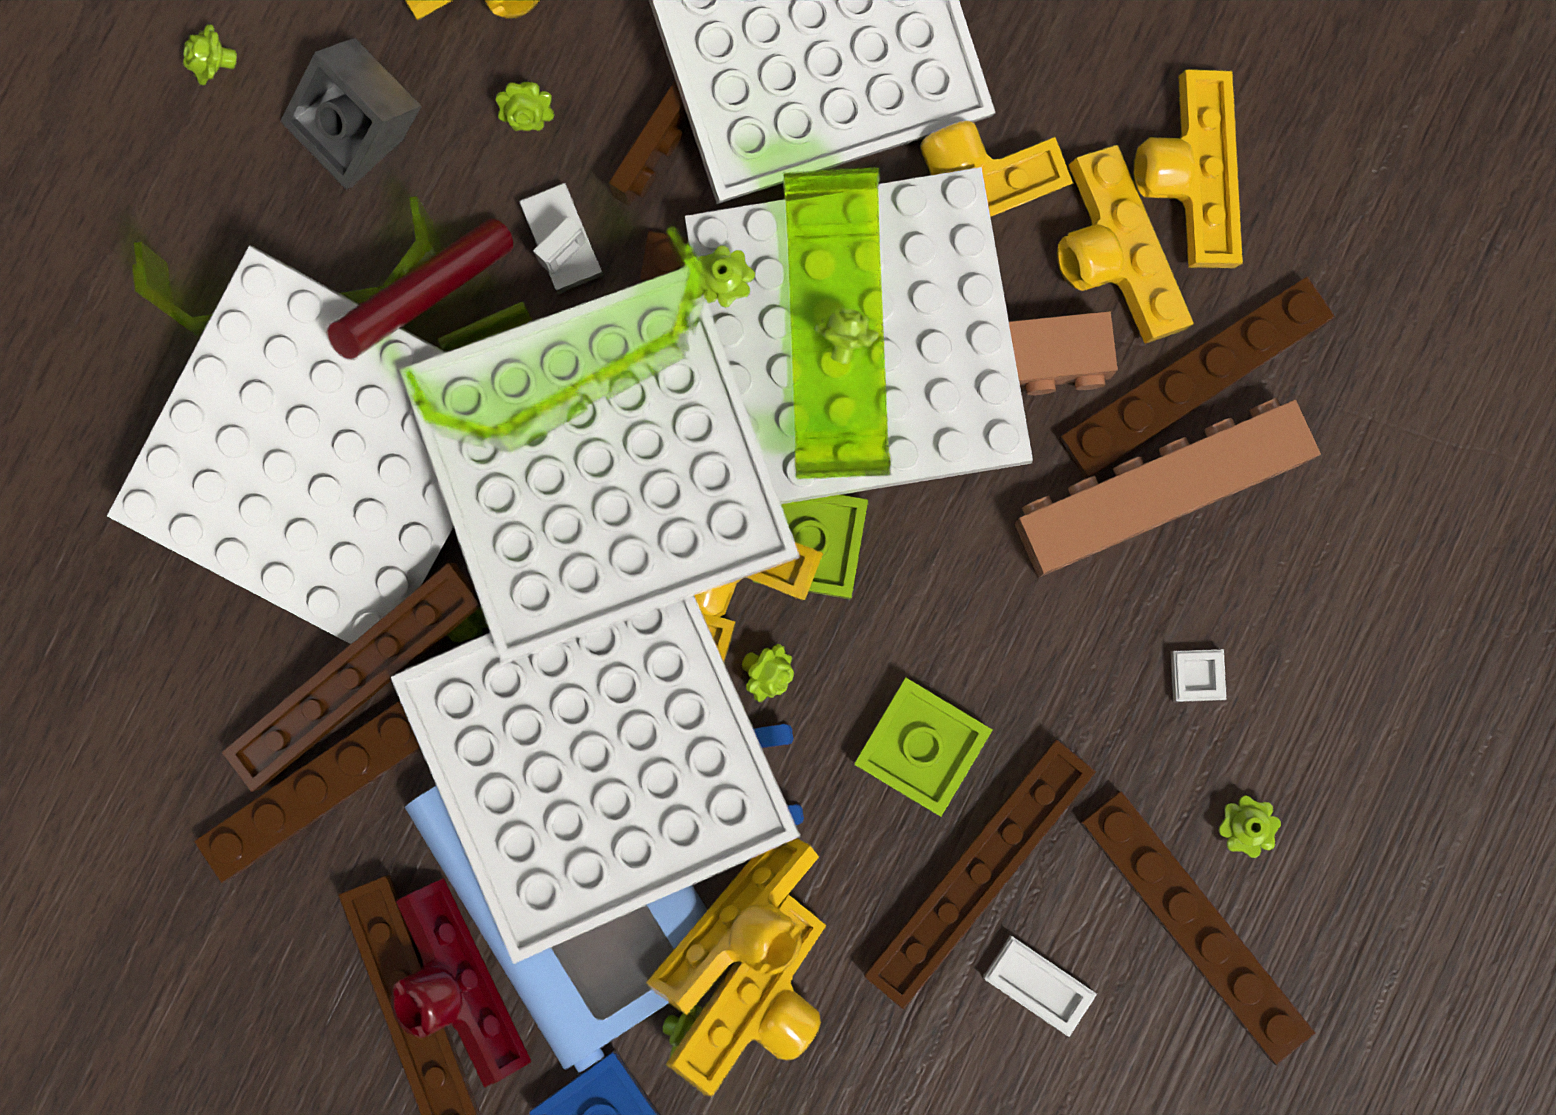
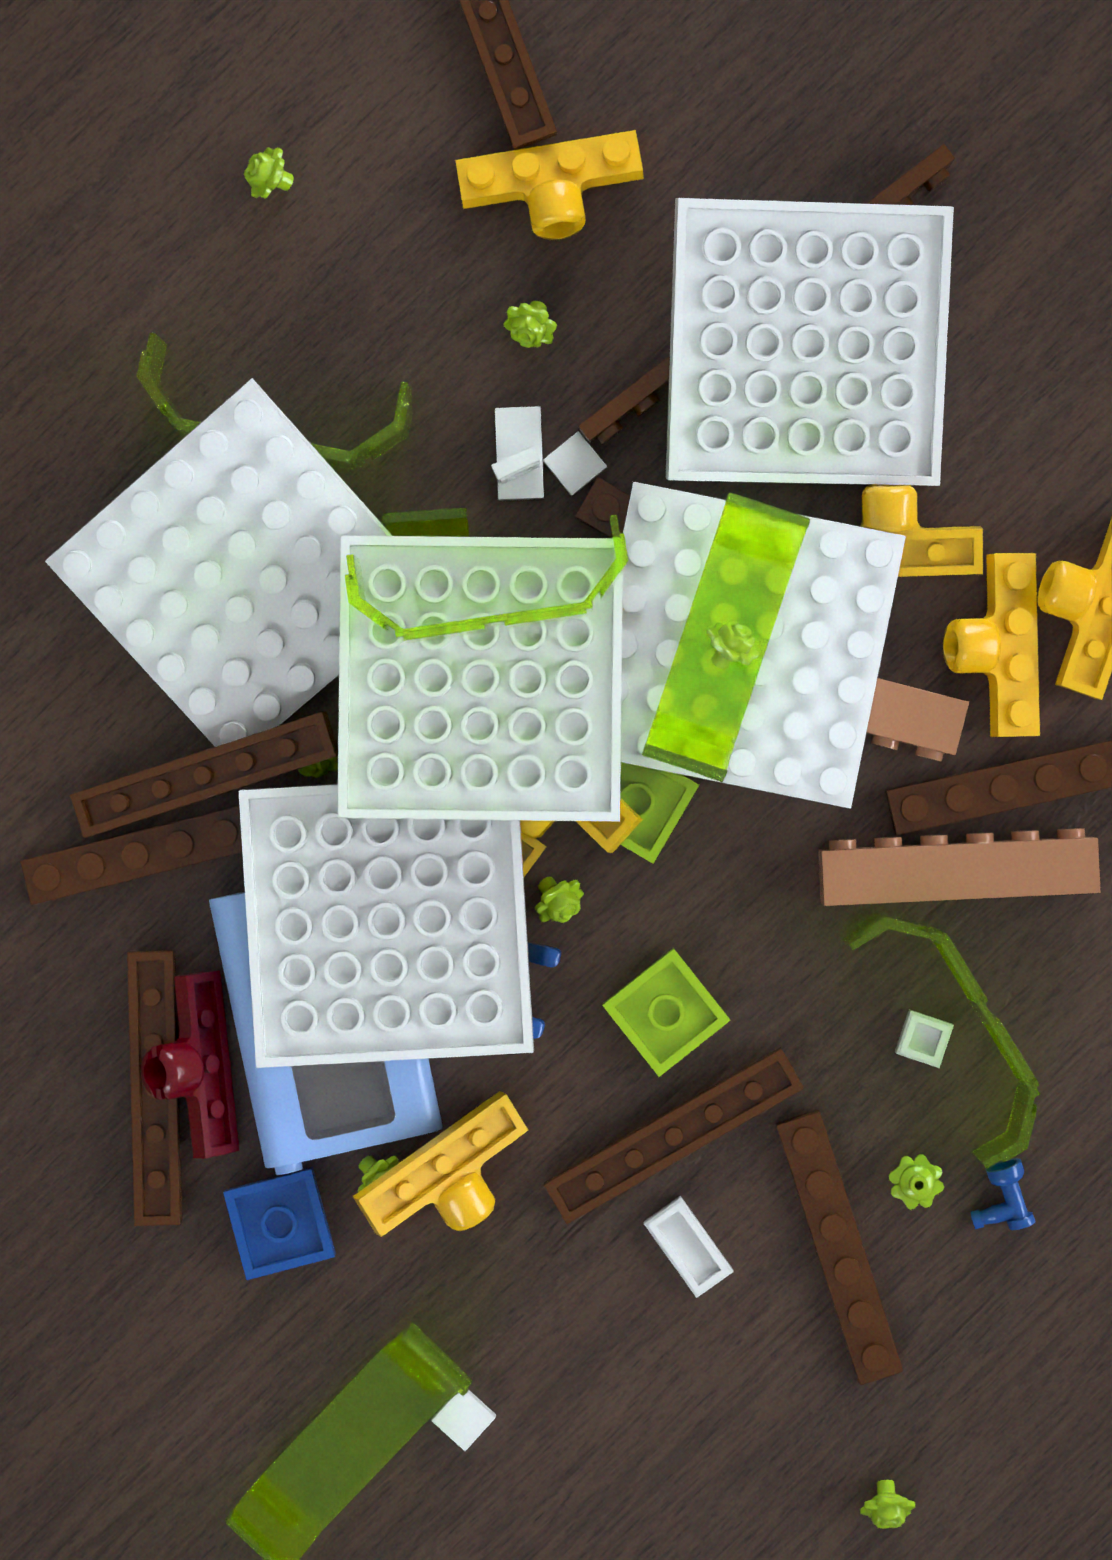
camera: 20 degrees right, 5 degrees up
(349, 111) = (375, 272): flat silver slope -> none
(419, 289) = (382, 465): dark red piece -> none
(621, 228) = (575, 463): none -> white tile
(726, 275) = (648, 552): lime plant -> none
(739, 928) = (455, 1107): yellow plate -> none
(1331, 706) = (1023, 1111): none -> clear neon green windscreen
(1361, 817) = (1013, 1209): none -> blue piece

